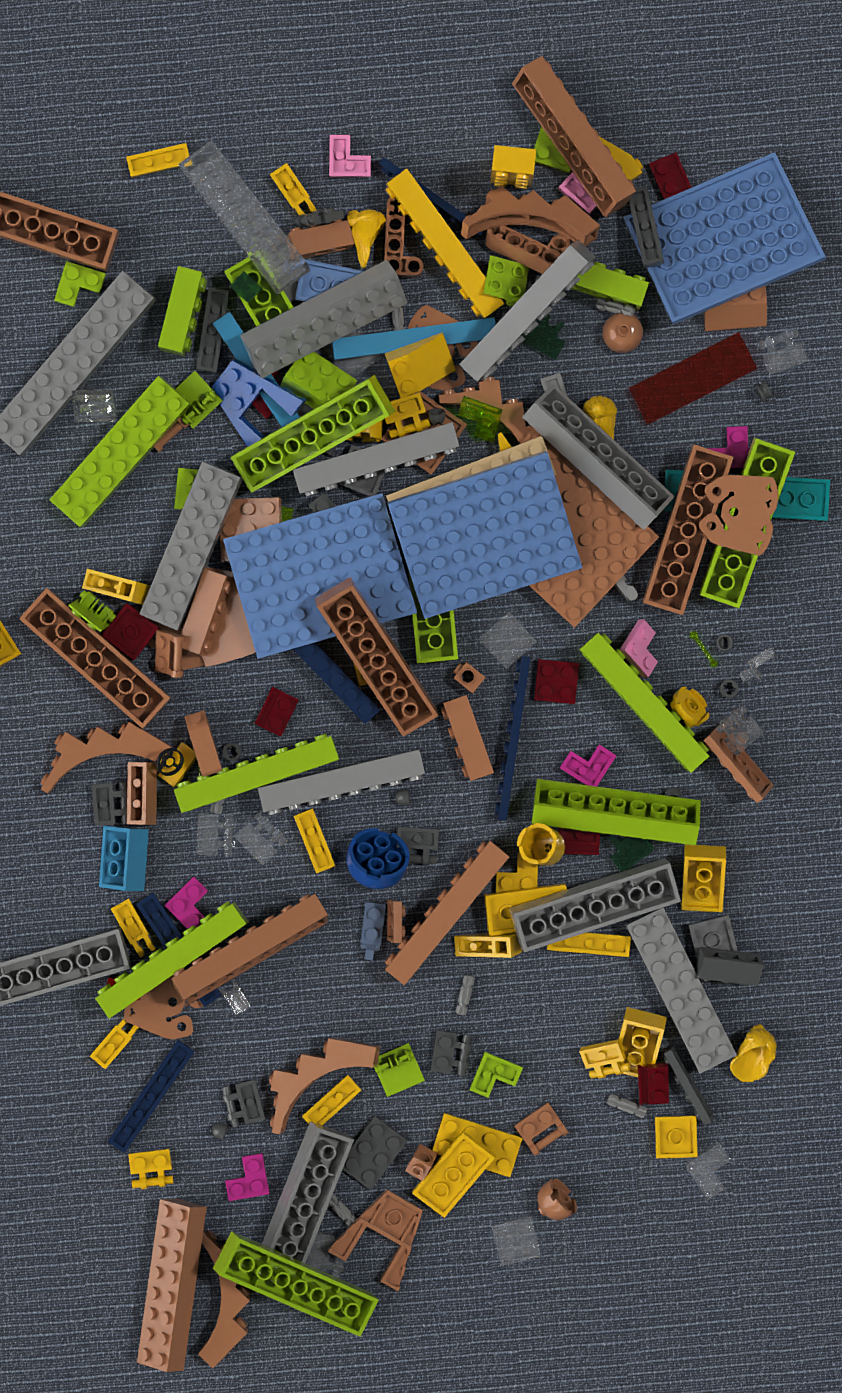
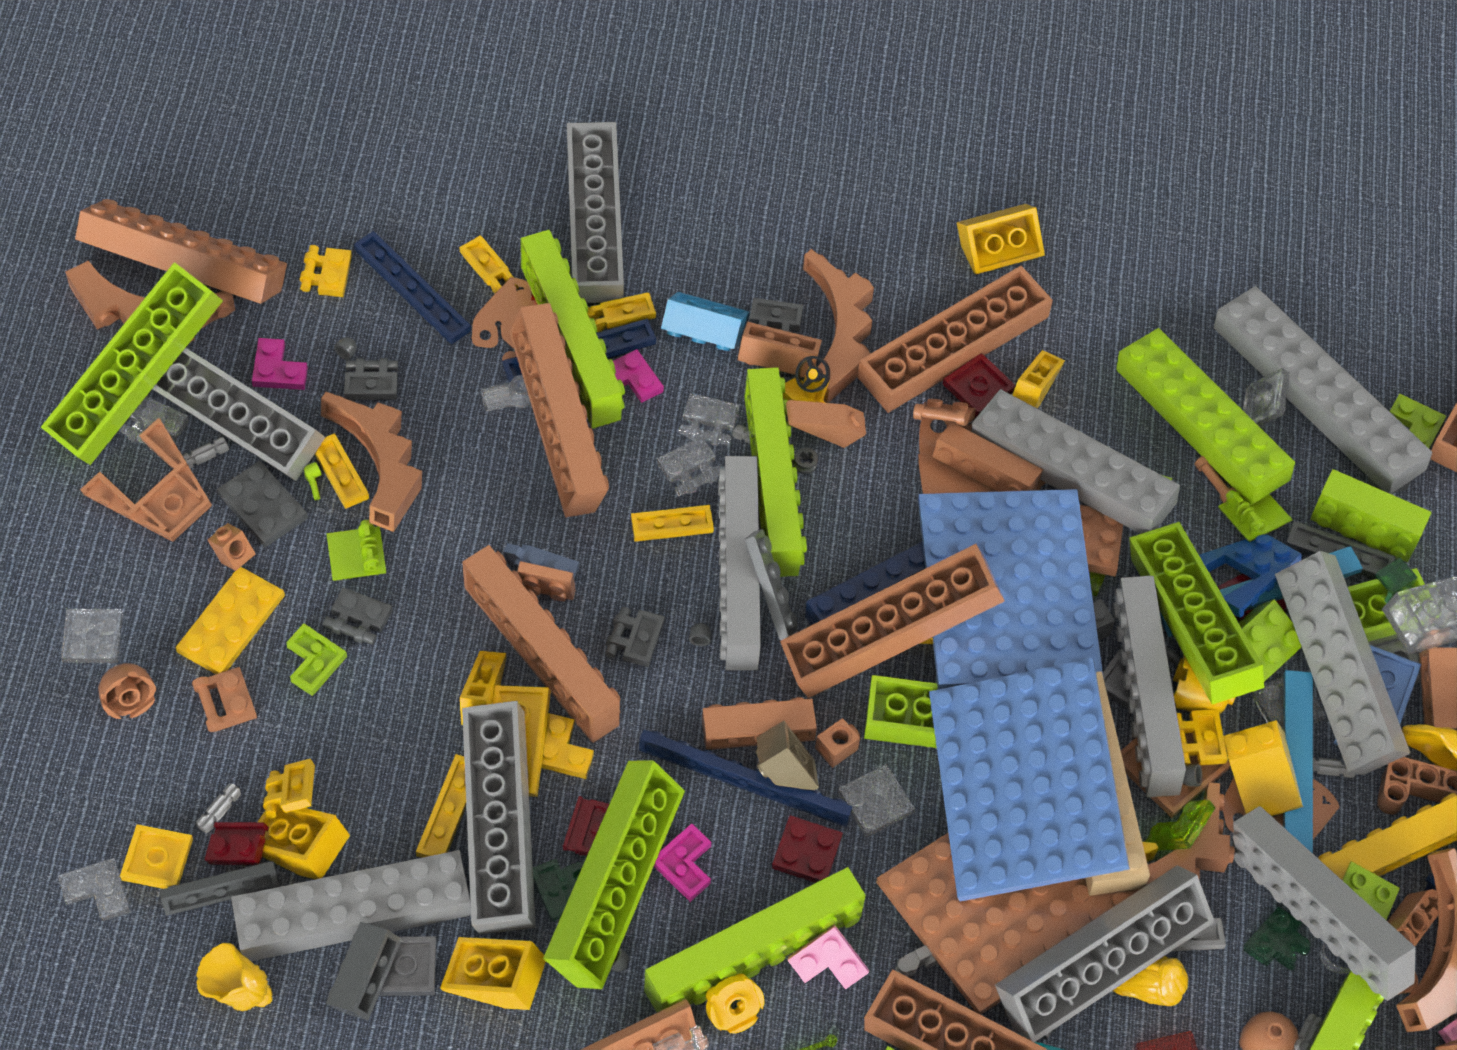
camera: 100 degrees right, 30 degrees down
(82, 609) = (1012, 343): lime hinge -> none
(276, 711) = (844, 520): dark red plate -> none
(337, 1123) = (311, 472): none -> lime hand
(361, 753) = (769, 578): none -> dark grey plate
(376, 859) = (631, 575): blue cylinder -> none
(453, 1174) = (203, 579): yellow plate -> none
(465, 994) = (426, 649): light grey axle -> none
(498, 710) = (786, 759): none -> dark tan slope
(535, 842) = (596, 766): yellow cylinder -> none

